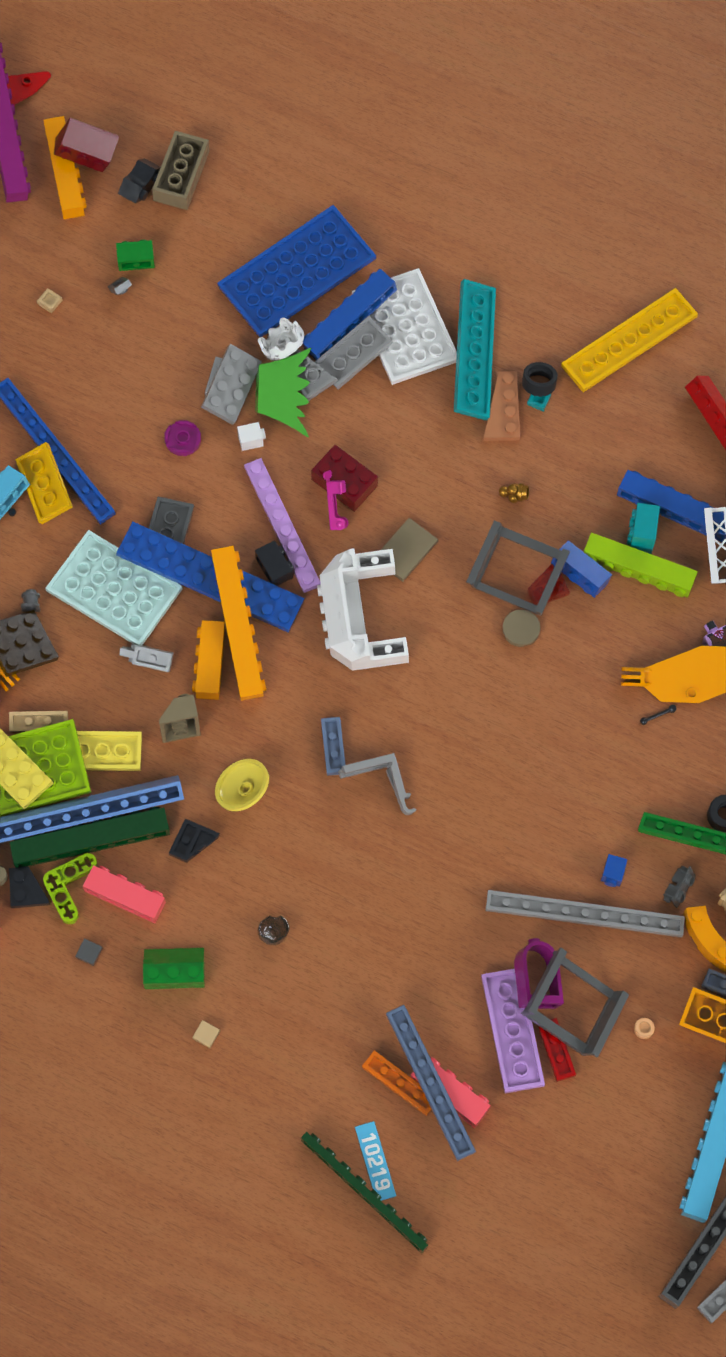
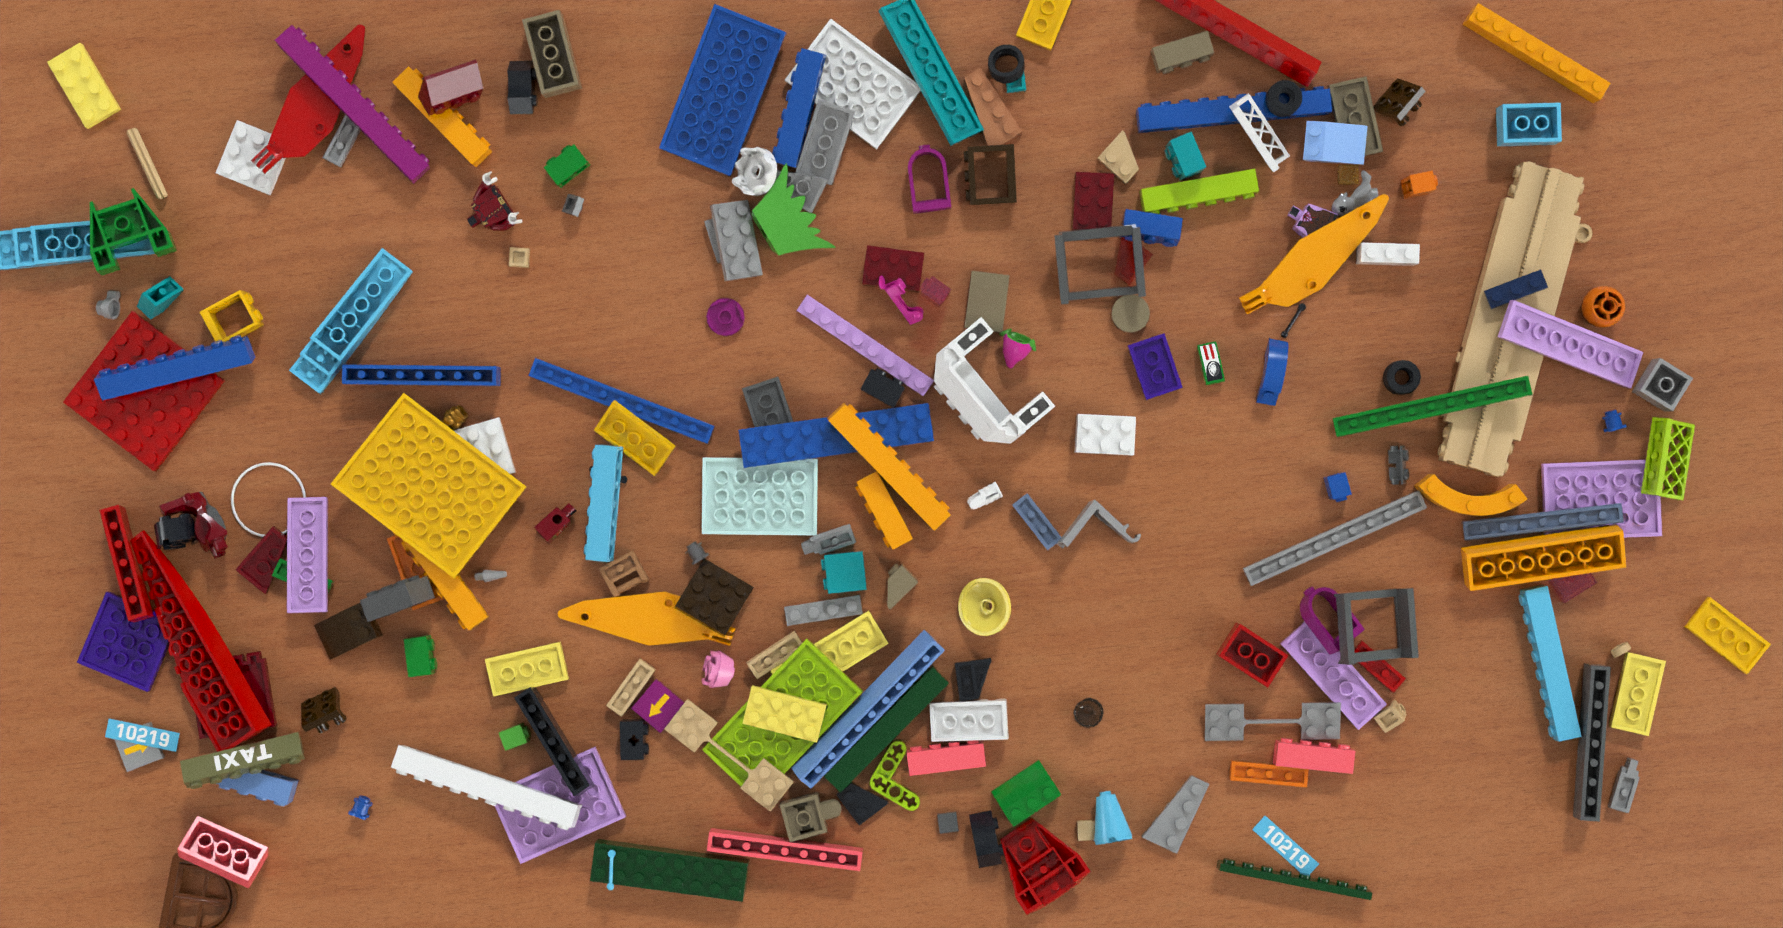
camera: 30 degrees left, 20 degrees up
(54, 249) = (491, 207): none -> dark red torso
(103, 711) = (823, 610): none -> light grey plate
(111, 984) = (985, 839): none -> black brick
(142, 687) = (844, 572): none -> teal brick
(144, 1038) = (1040, 865): none -> red wedge
(165, 873) = (969, 720): none -> white hinge
(230, 1036) = (1110, 820): none -> medium azure cone
(251, 436) = (785, 279): white brick -> none
(291, 1073) = (1174, 821): none -> light grey wing
(296, 699) = (985, 496): none -> white hinge
(367, 512) = (935, 291): none -> clear pink brick
(406, 595) = (1016, 347): none -> dark pink hat
(407, 449) = (935, 204): none -> magenta window
(430, 1083) = (1296, 763): sand blue tile -> none
(437, 708) = (1105, 434): none -> white brick
(449, 966) = (1252, 654): none -> red brick
(472, 1063) = (1317, 721): none -> light grey hinge
(479, 479) = (1010, 170): none -> dark brown window
(515, 680) = (1154, 366): none -> dark purple plate
(516, 492) = (1050, 188): pearl gold piece -> none
(542, 1099) = (1391, 716): none -> tan bracket
(547, 521) = (1093, 200): none -> dark red plate
(565, 706) = (1211, 363): none -> slope
(588, 504) = (1119, 158): none -> tan wing
(613, 742) = (1274, 372): none -> blue arch
(644, 1028) = (1438, 604): light nougat tile -> none
(691, 452) = (1182, 52): none -> dark tan brick

